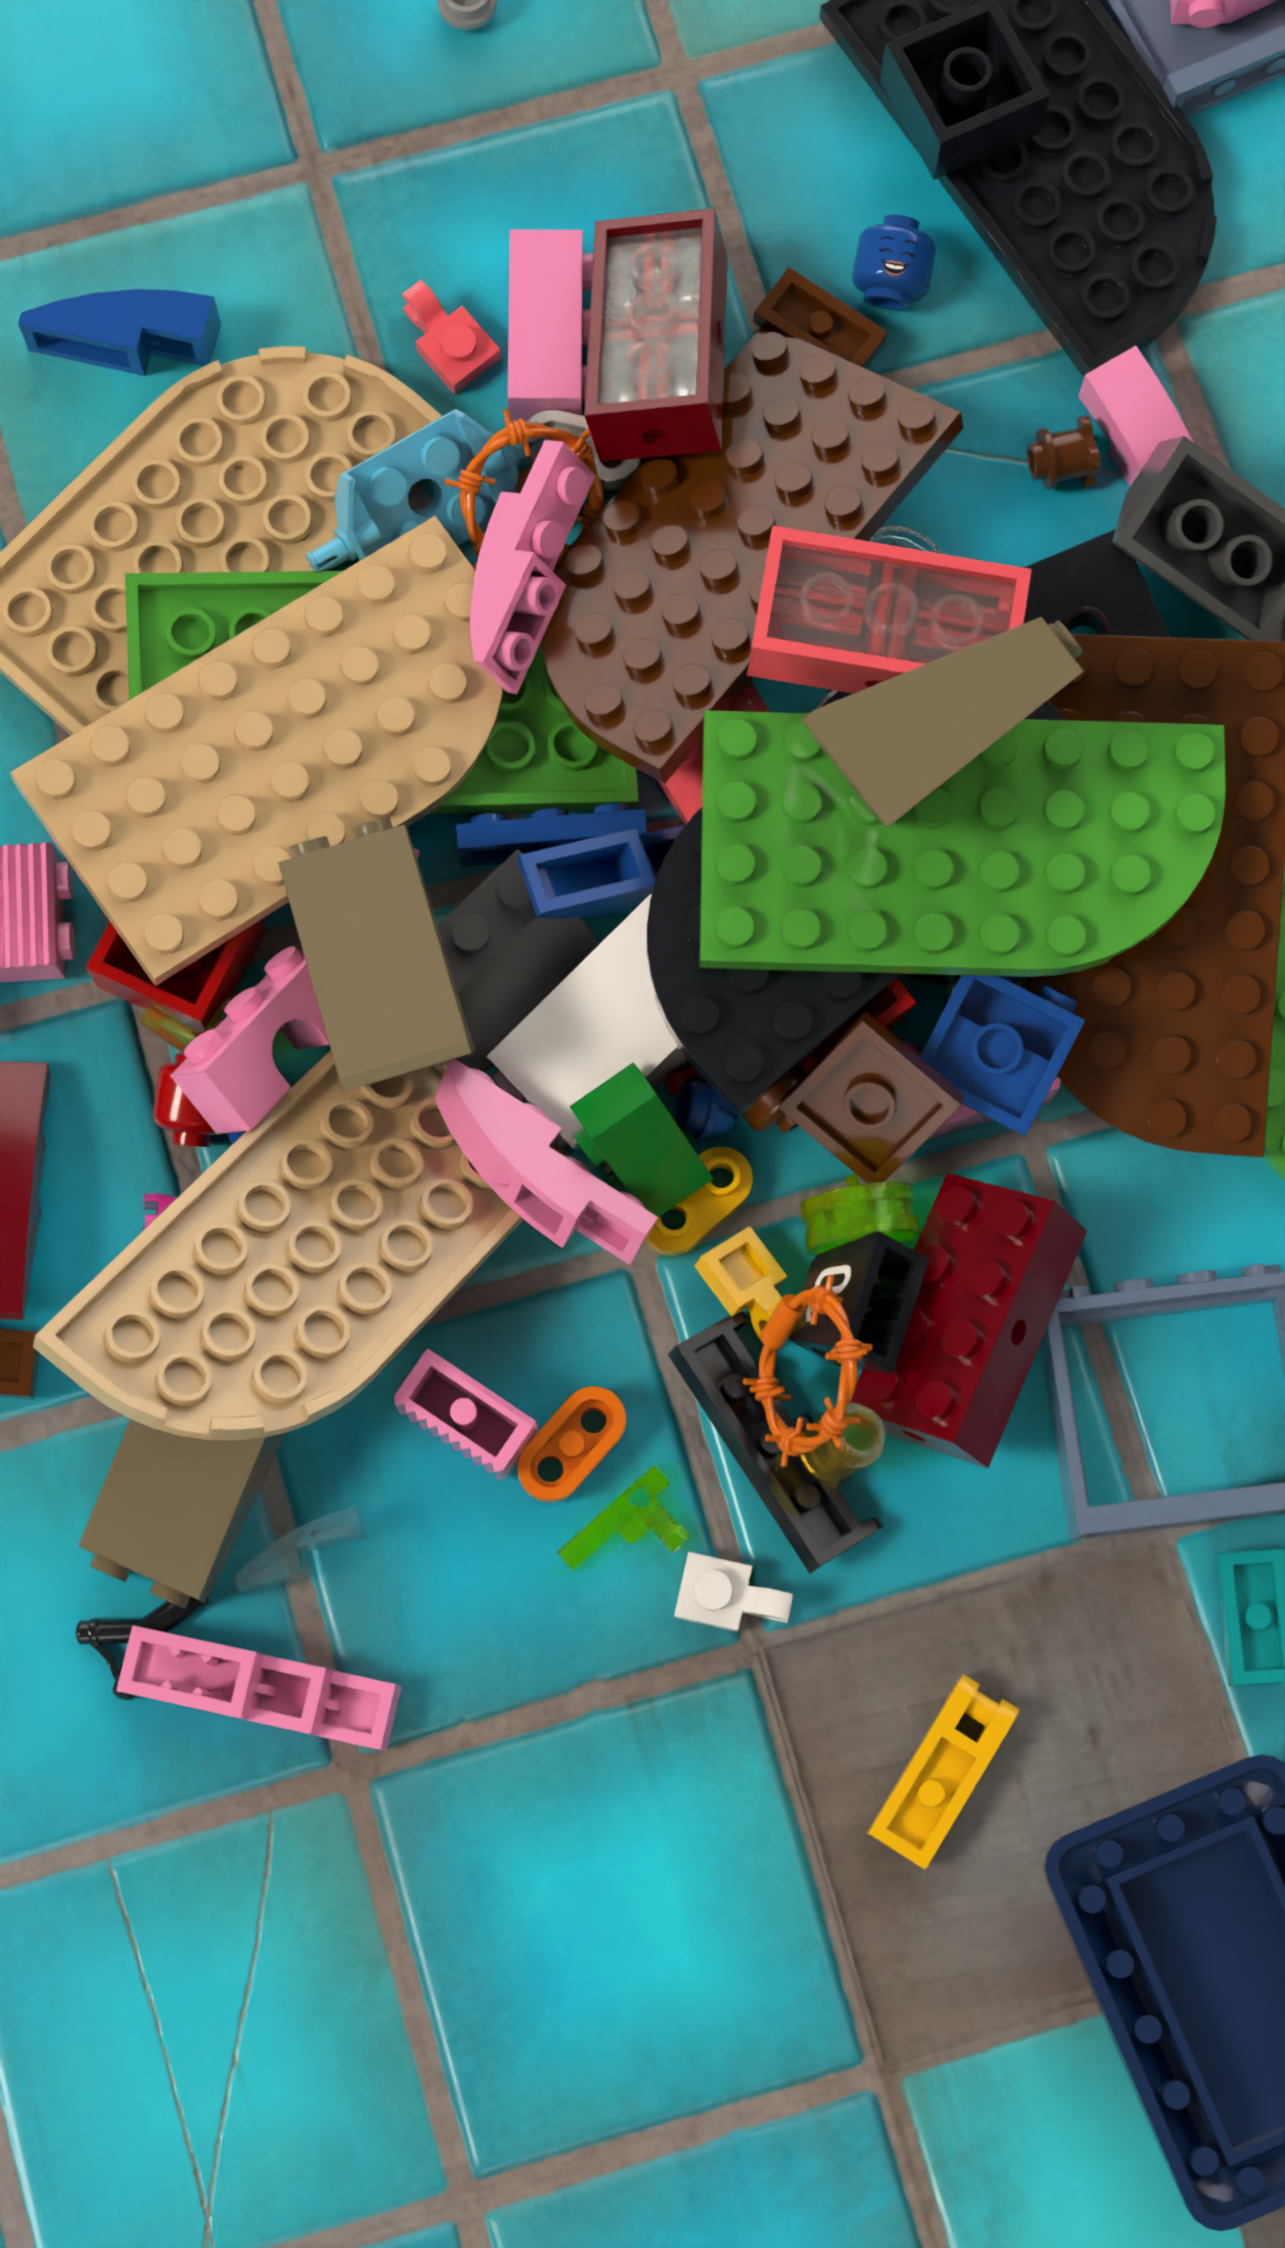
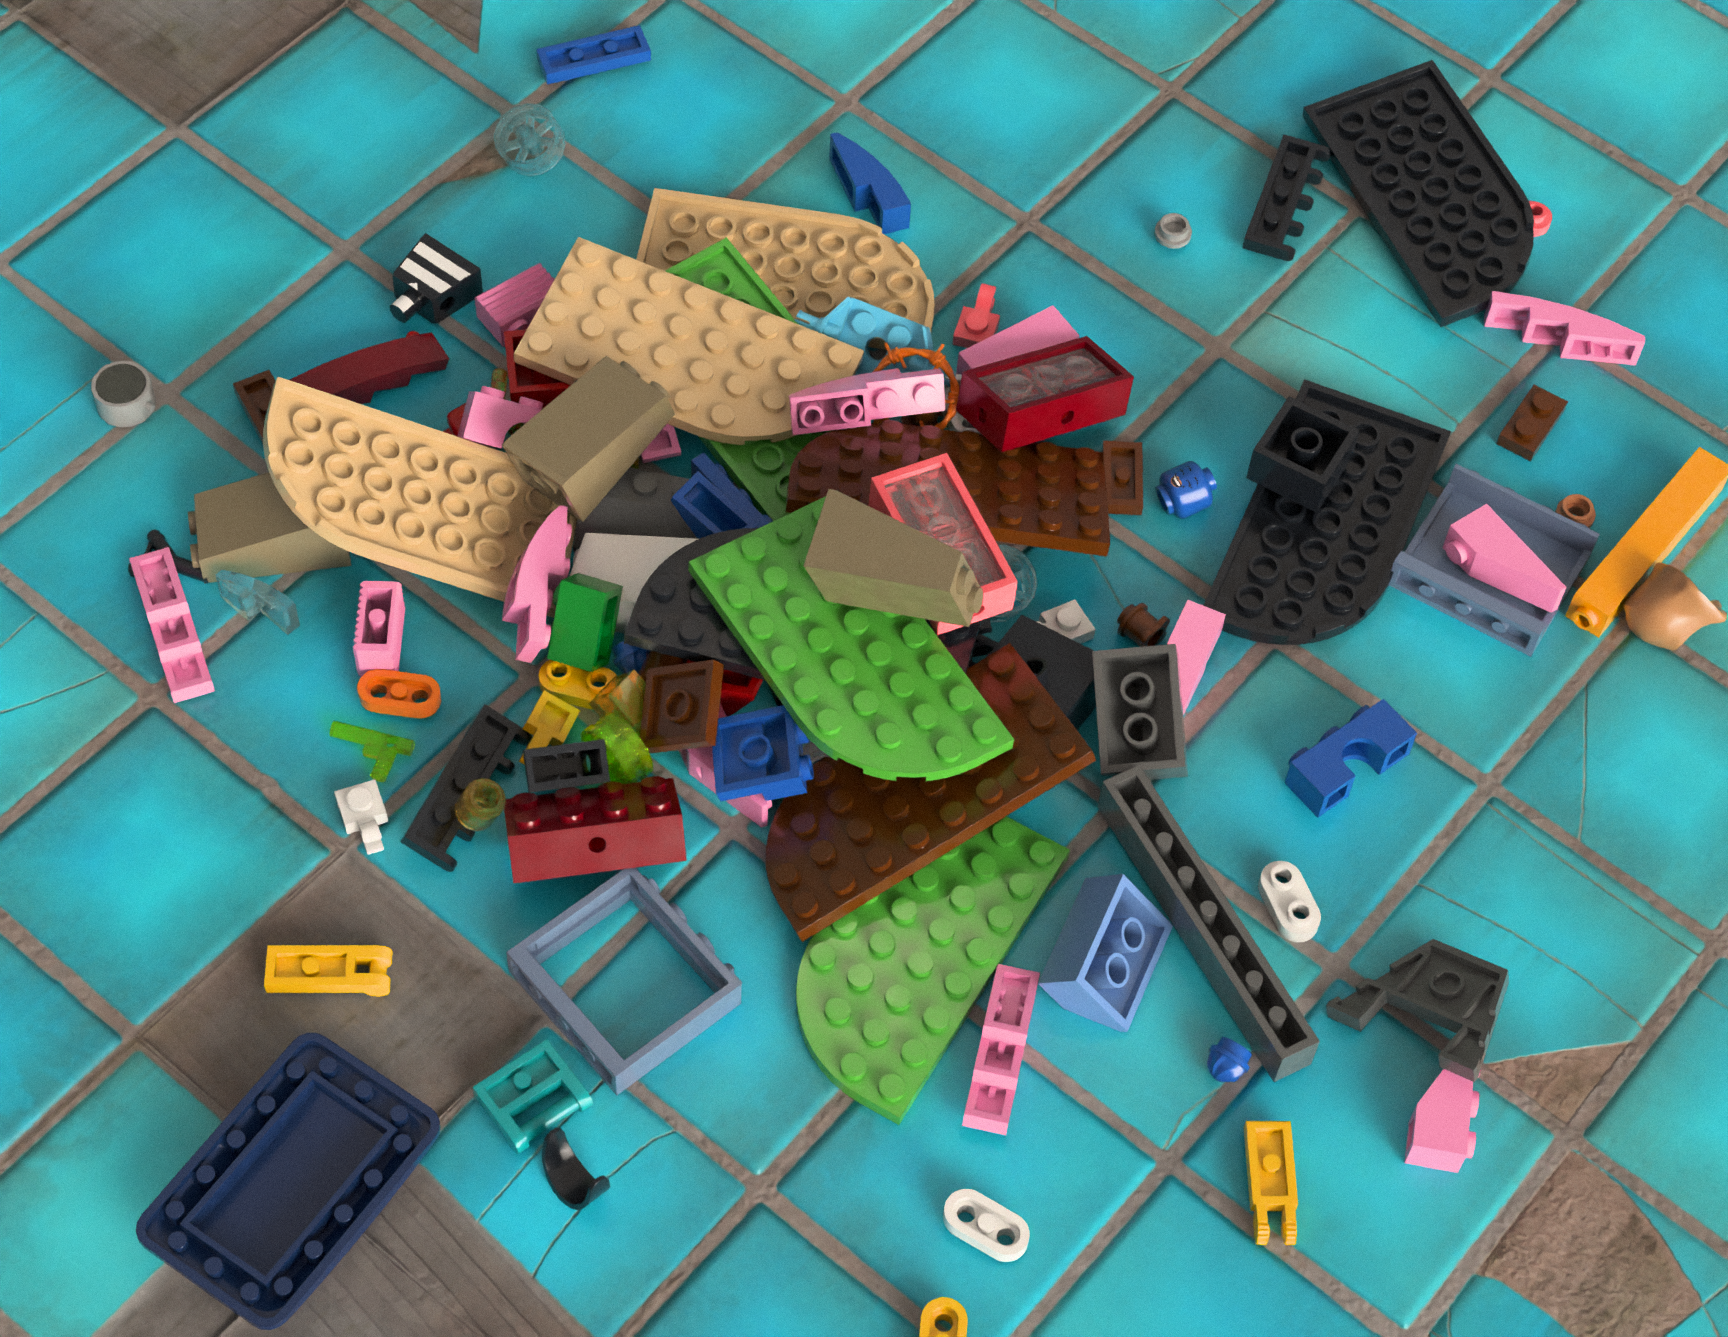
camera: 55 degrees right, 20 degrees down
(787, 1166) = (623, 697): none -> clear yellow brick
(846, 1352) = (517, 743): orange piece -> none
(996, 536) = (1069, 621): none -> white plate

